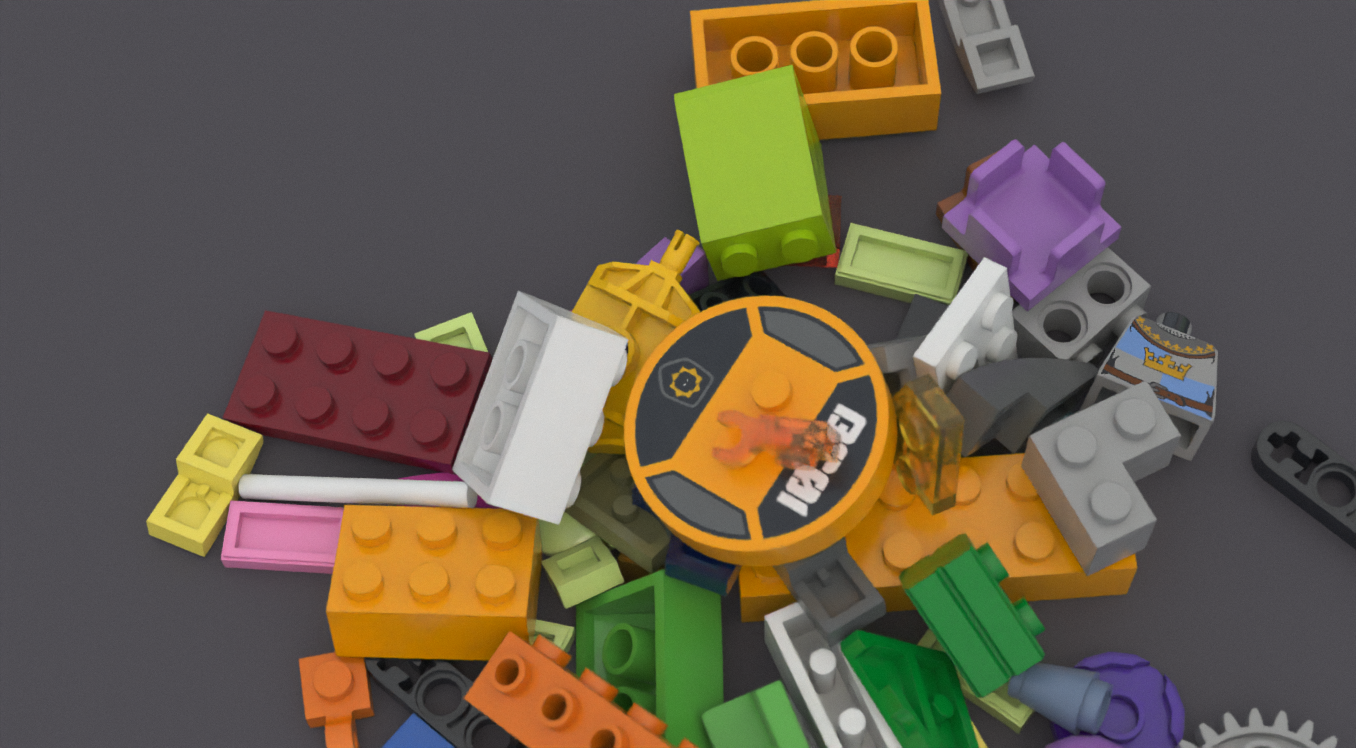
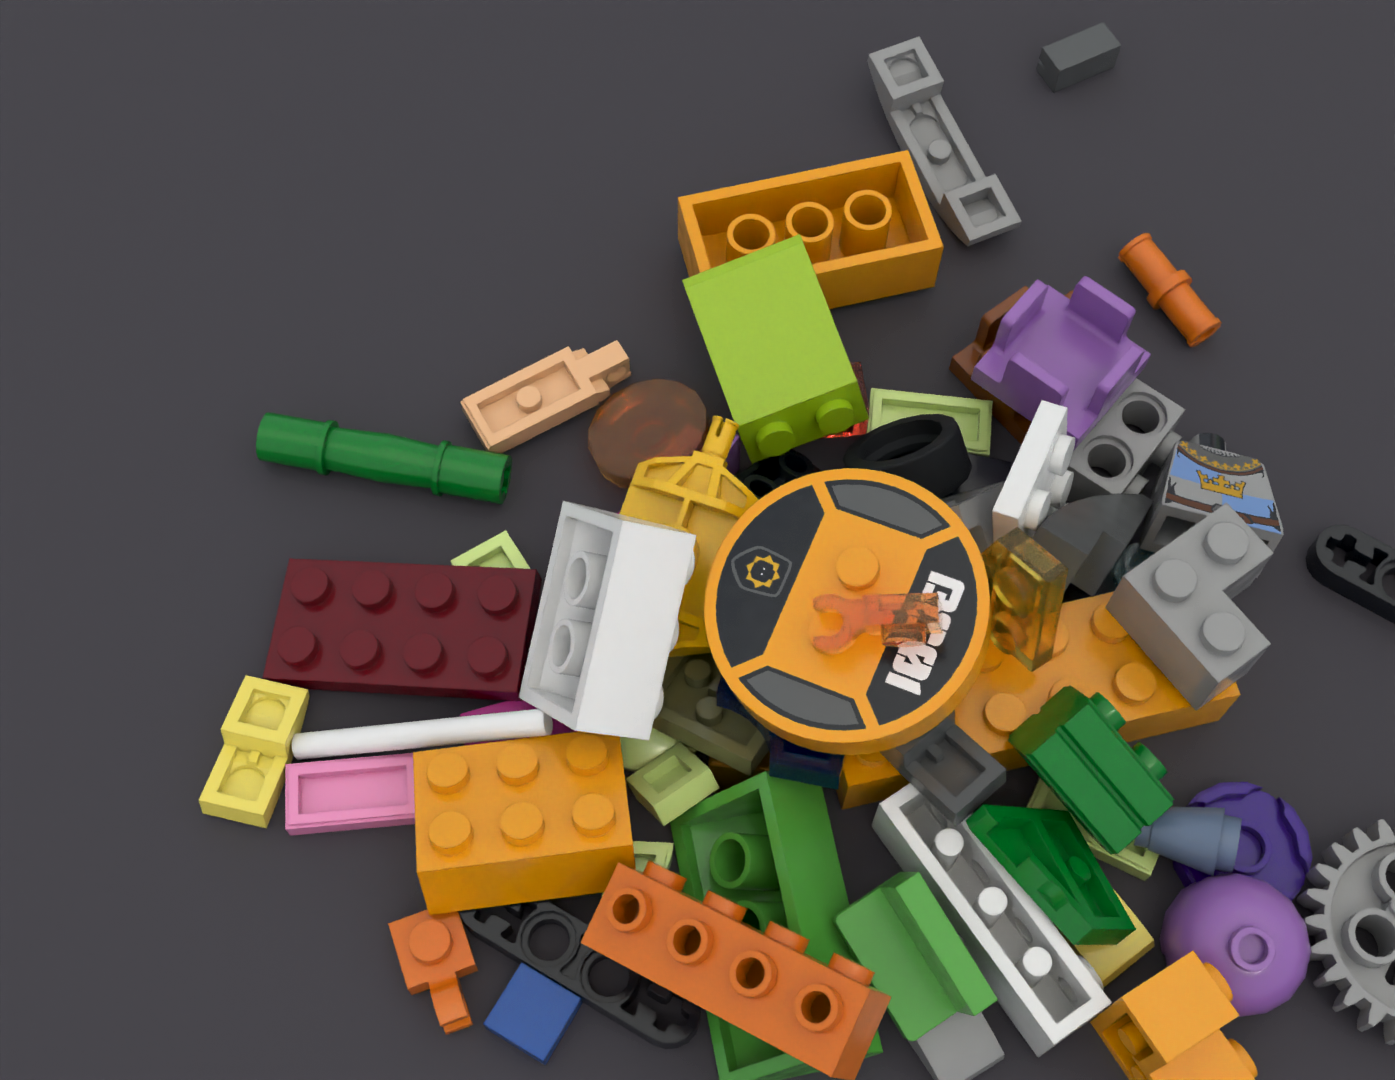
camera: 15 degrees left, 0 degrees up
(370, 227) = (384, 457): none -> green piece
(532, 187) = (544, 395): none -> light nougat hinge
(622, 227) = (646, 423): none -> clear orange tile
(871, 295) = (917, 448): none -> black tyre
(1171, 164) = (1169, 289): none -> orange pin

